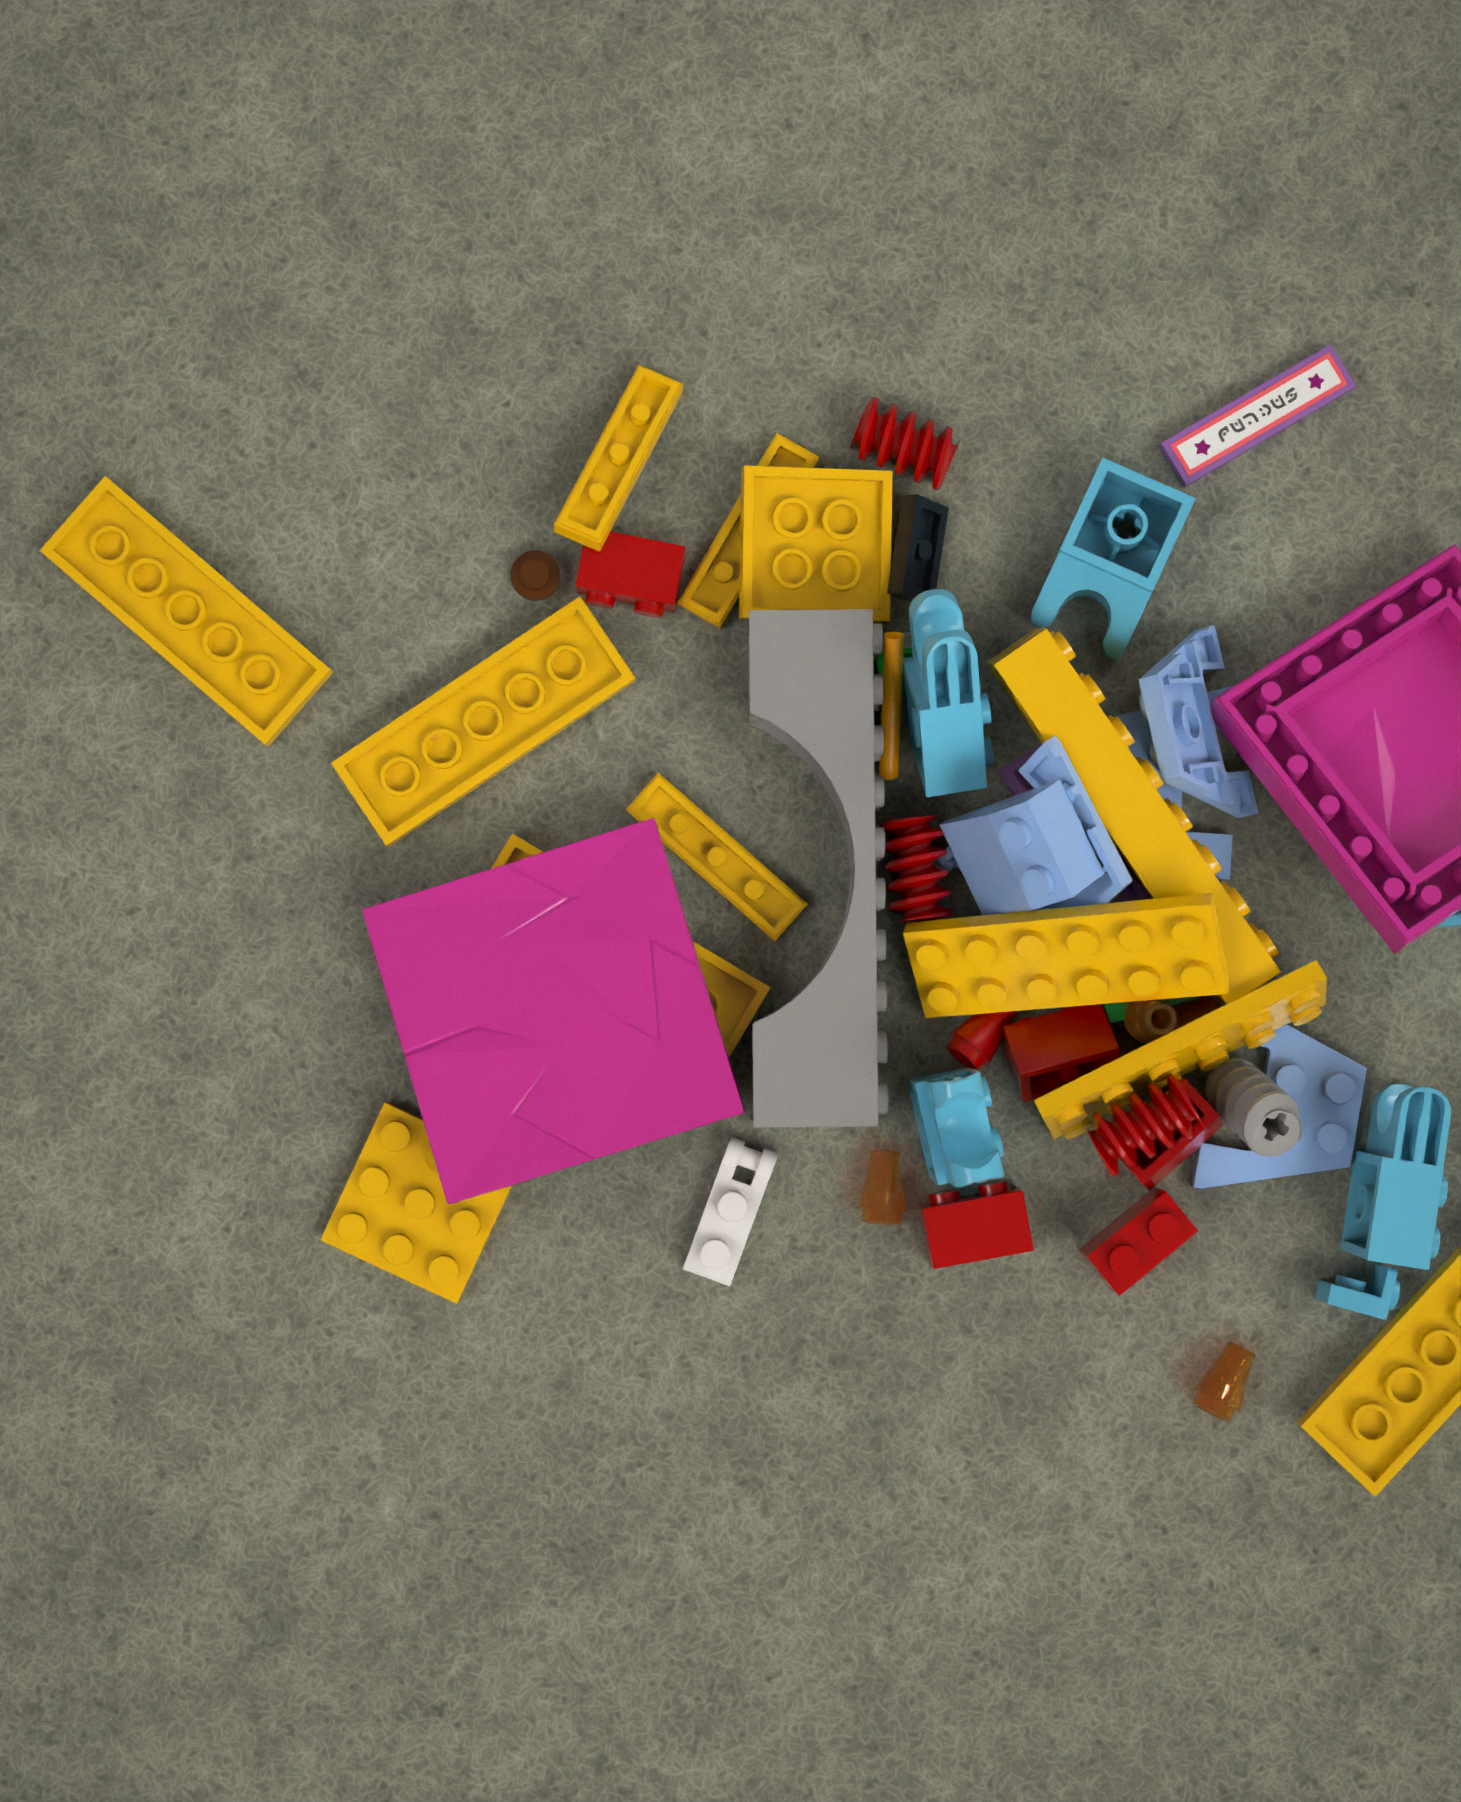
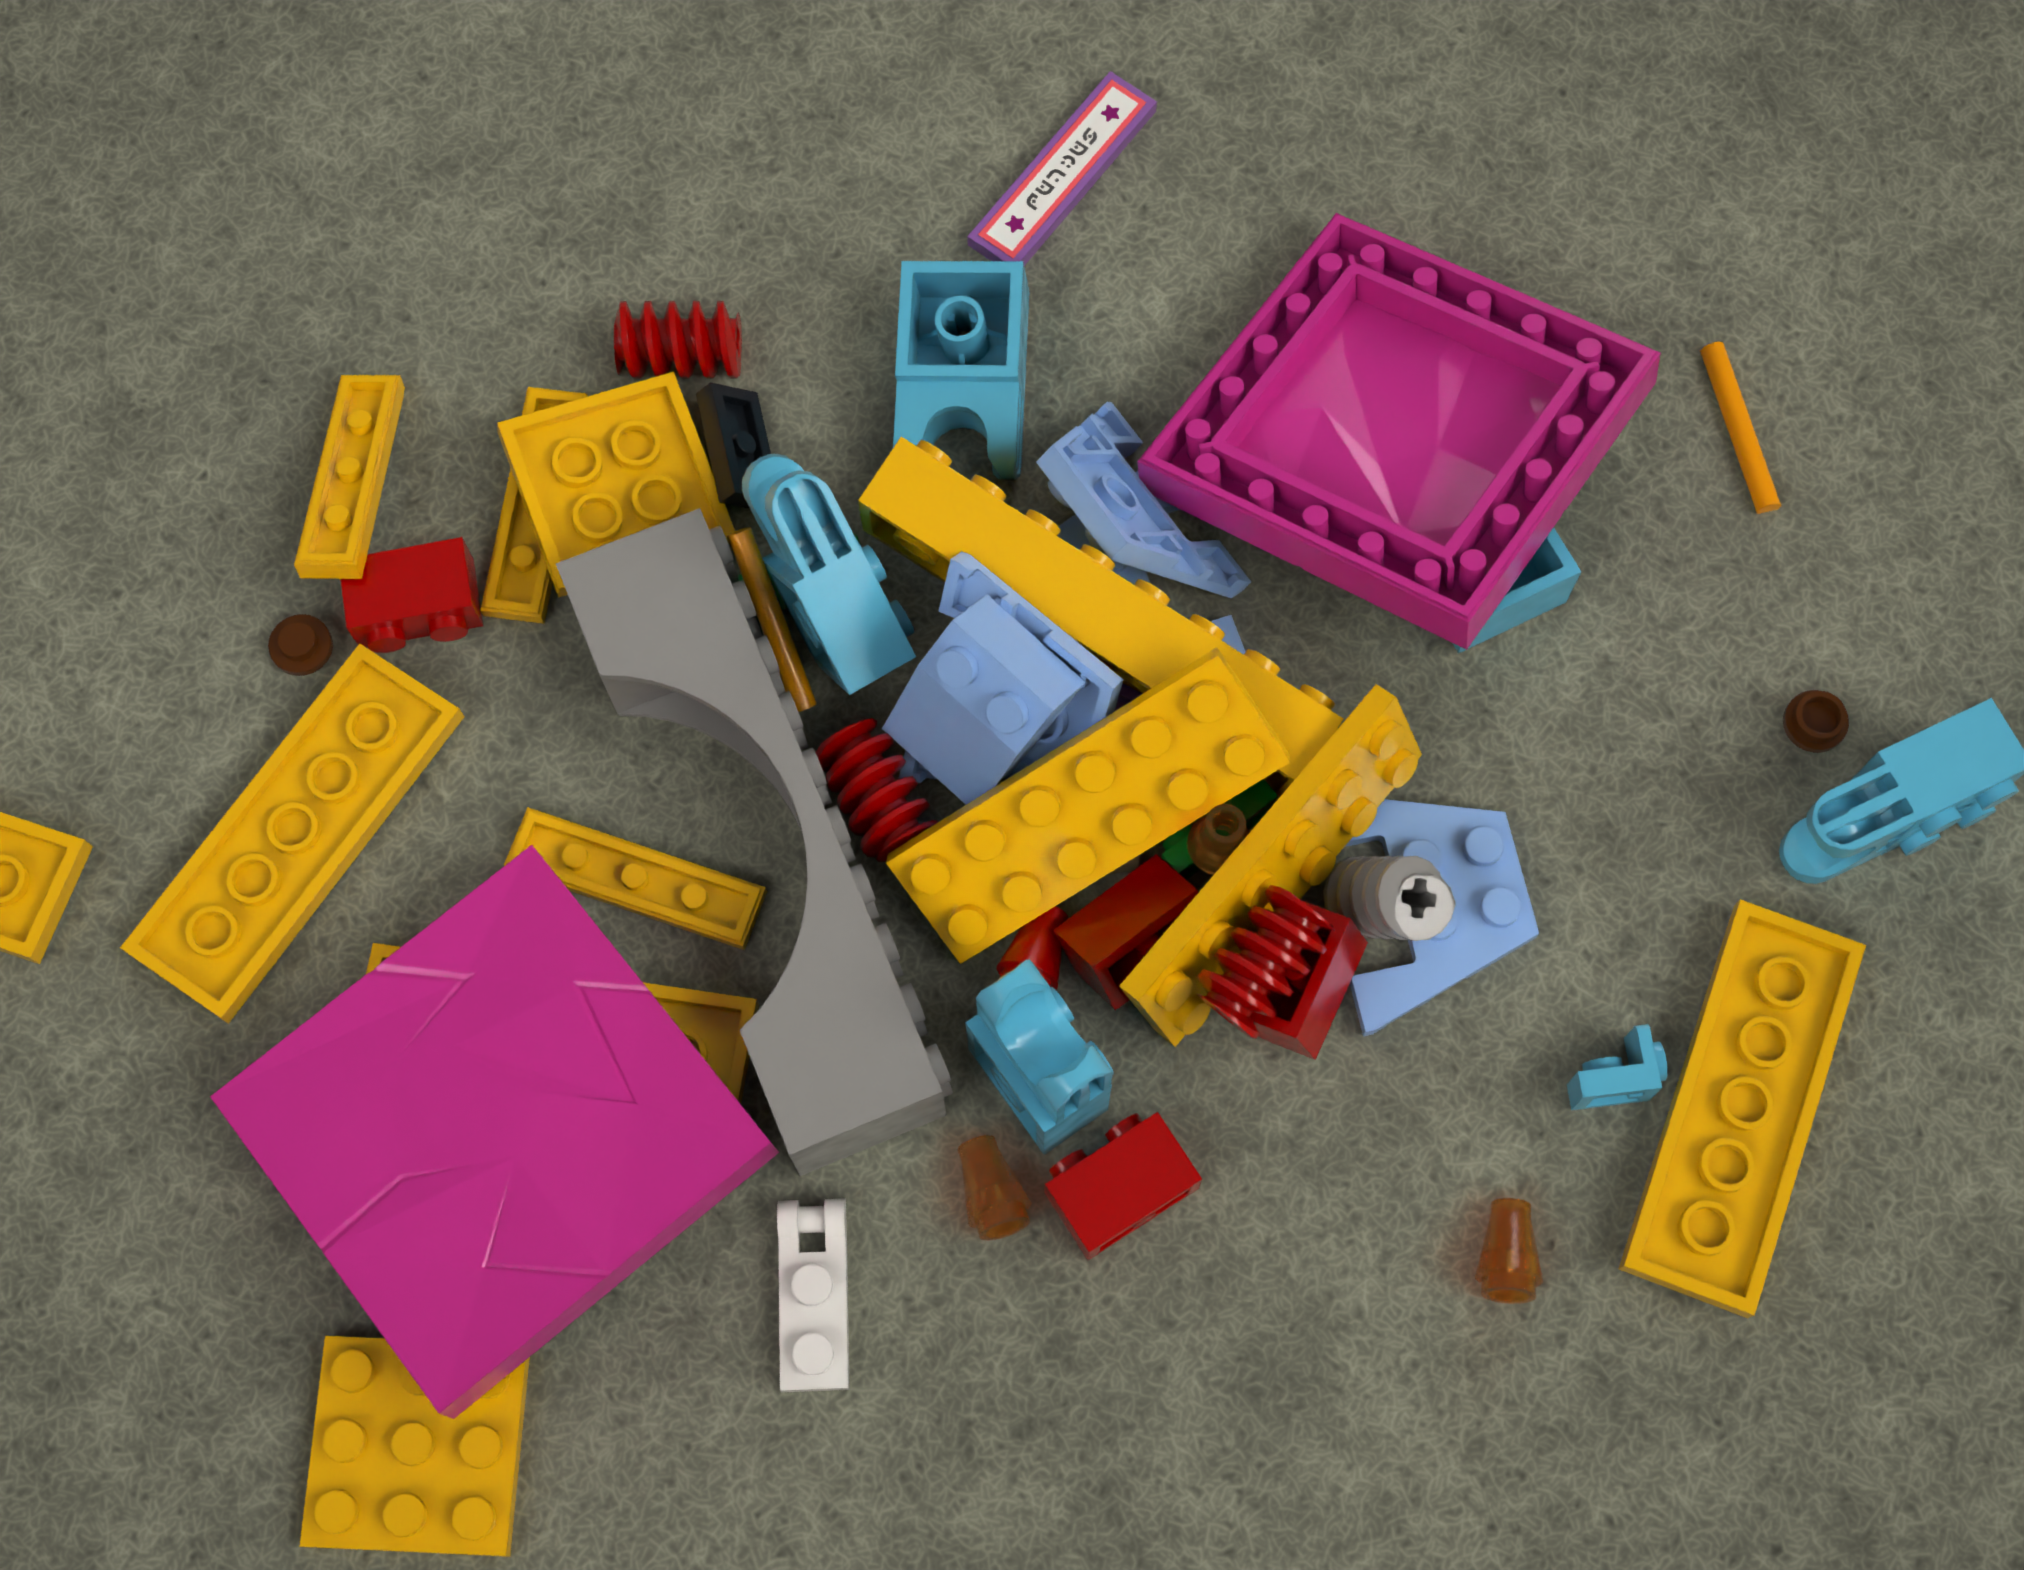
camera: 20 degrees left, 15 degrees down
(1138, 1240) = (1325, 1119): red brick -> none
(1399, 1179) = (1600, 916): medium azure brick -> none

